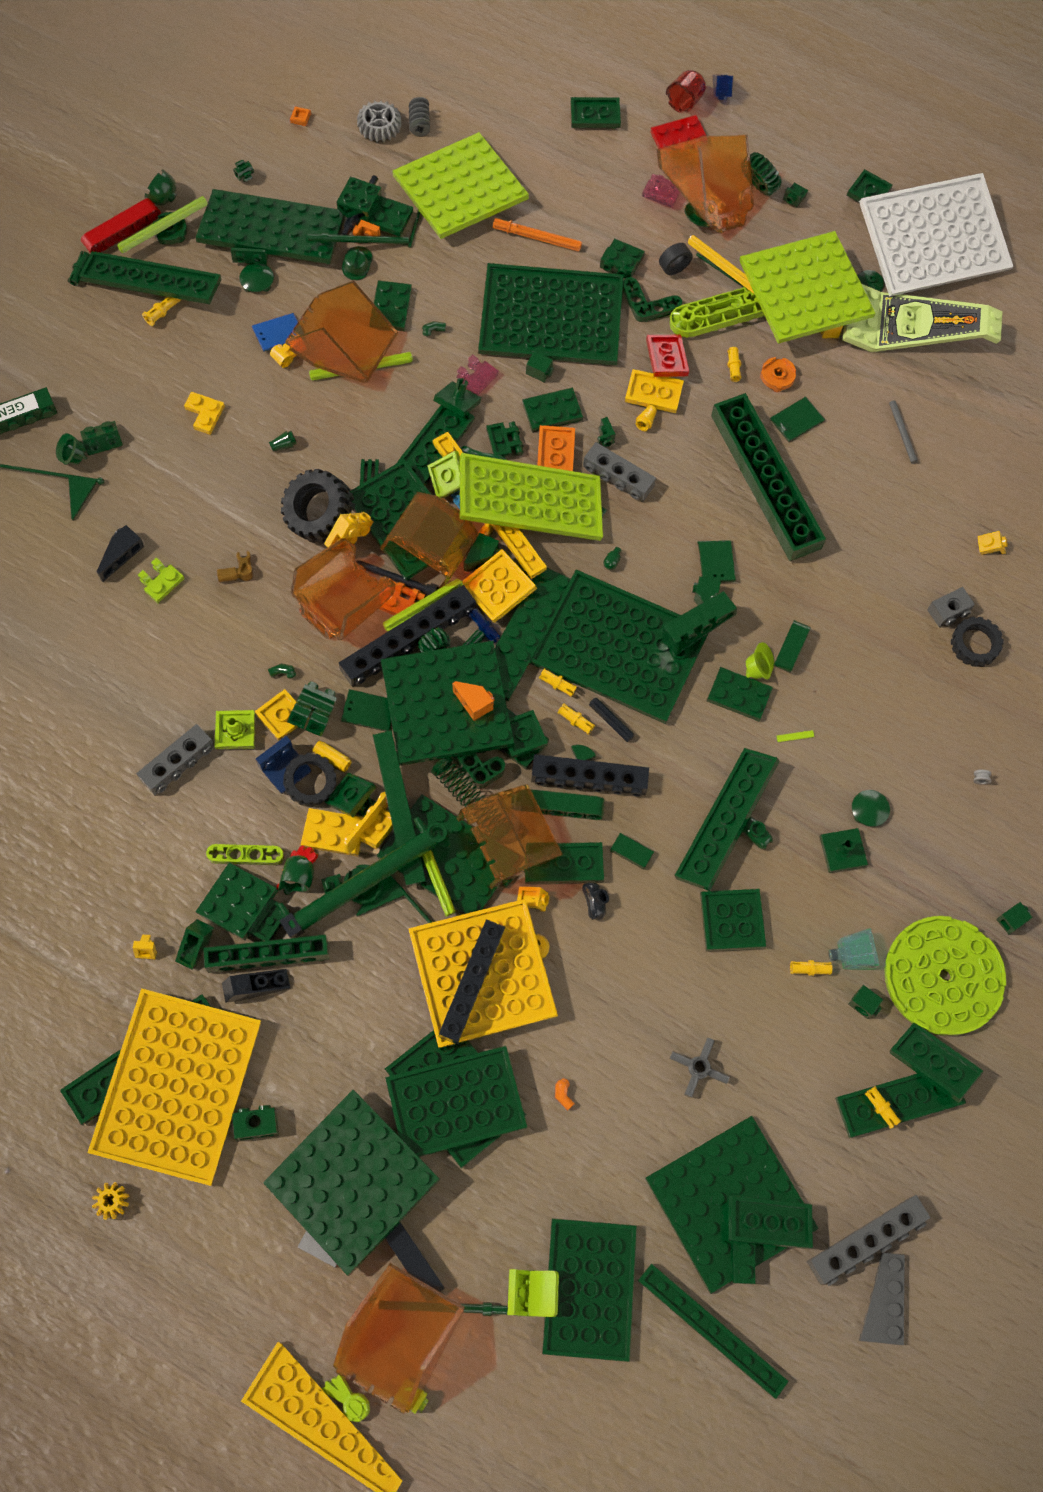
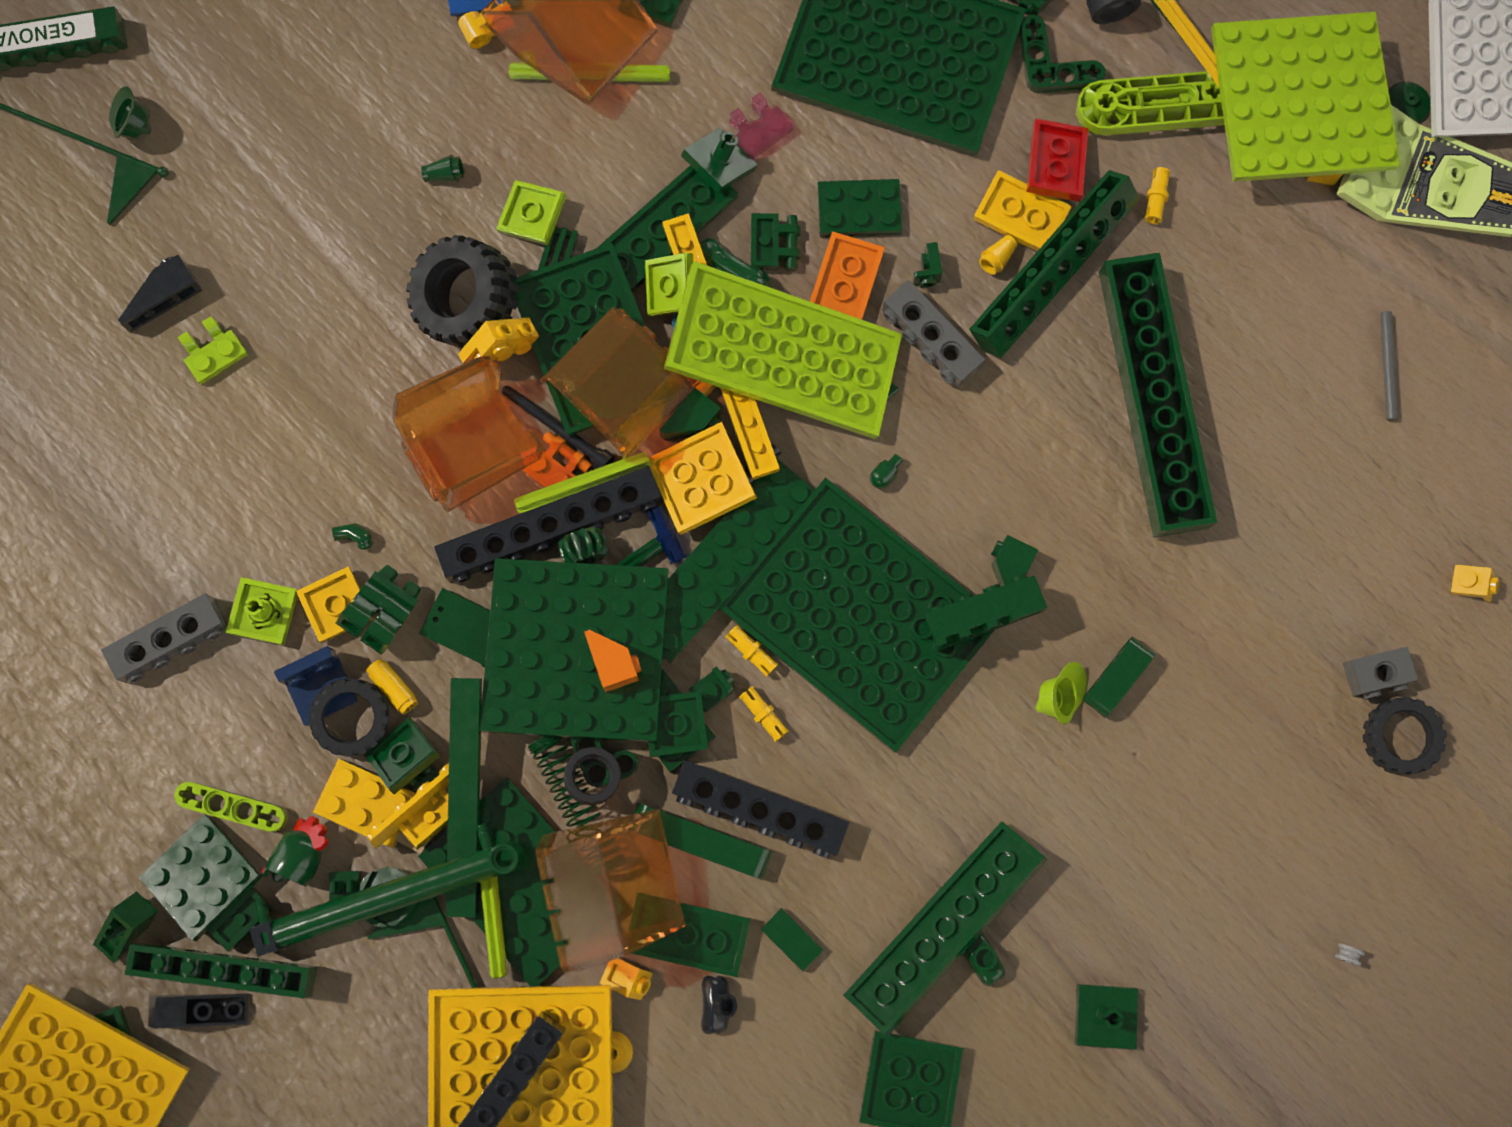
camera: 15 degrees right, 10 degrees up
(101, 438) = (178, 103): dark green bracket -> none
(144, 948) = (54, 914): yellow tile -> none
(208, 410) = (346, 93): yellow plate -> none
(243, 571) = (336, 363): pearl gold bar -> none
(346, 454) = (531, 212): none -> lime plate
(437, 326) = (714, 30): dark green arm -> none
(478, 788) = (597, 754): none -> black tyre
(539, 367) = (857, 134): dark green brick -> none
(542, 707) = (714, 688): none -> dark green bracket
(582, 752) = (759, 770): dark green tile -> none
(611, 719) = (816, 727): black axle -> none
(682, 415) = (1054, 263): none -> dark green brick
(717, 560) = (1042, 511): dark green container -> none
(739, 694) = (1019, 732): dark green plate -> none
(775, 382) = (1225, 212): orange plate -> none
(794, 736) = (1082, 817): lime piece -> none
(797, 419) = (1230, 307): dark green container -> none
(870, 808) = (1165, 961): dark green dish -> none

